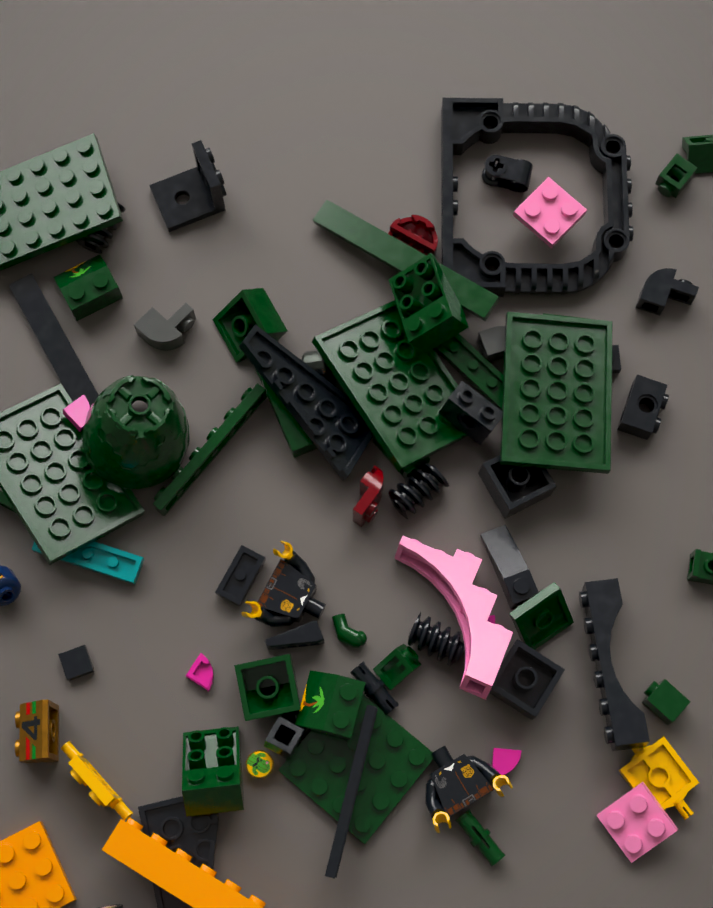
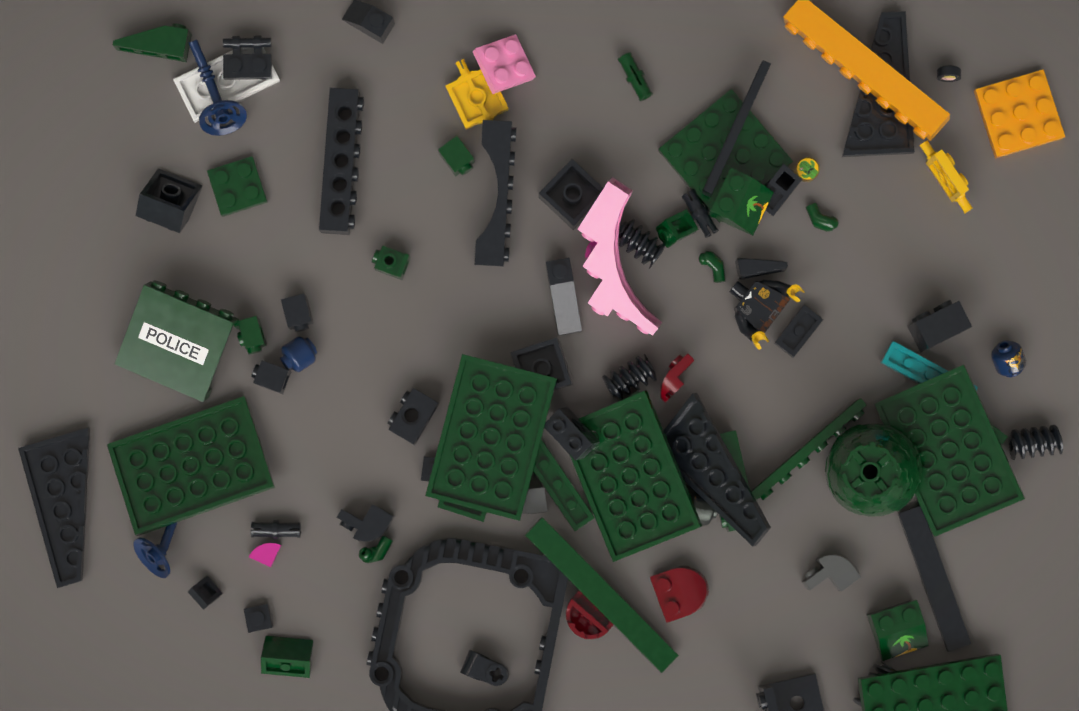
camera: 170 degrees left, 10 degrees up
(38, 732) = (990, 227): pearl gold slope -> none
(76, 662) = (950, 283): black tile -> none
(77, 412) = (921, 503): tile -> none
(82, 605) = (937, 327): none -> black brick
(201, 672) = (844, 254): dark pink tile -> none
(212, 771) = (848, 168): dark green slope -> none
(231, 705) = (821, 221): none -> dark green arm
(241, 315) = (754, 565): dark green slope -> none
(267, 687) = (791, 229): dark green slope -> none
(322, 282) = (680, 592): none -> dark red slope
(427, 304) = (591, 542): dark green slope -> none
(459, 784) = (645, 120): torso -> none
(505, 759) = (601, 134): dark pink tile -> none
(542, 616) = (547, 243): dark green plate -> none
(549, 212) = (457, 614): bright pink plate -> none
(645, 266) = (377, 552): none -> dark green arm
(675, 176) = (319, 638): dark green brick -> none

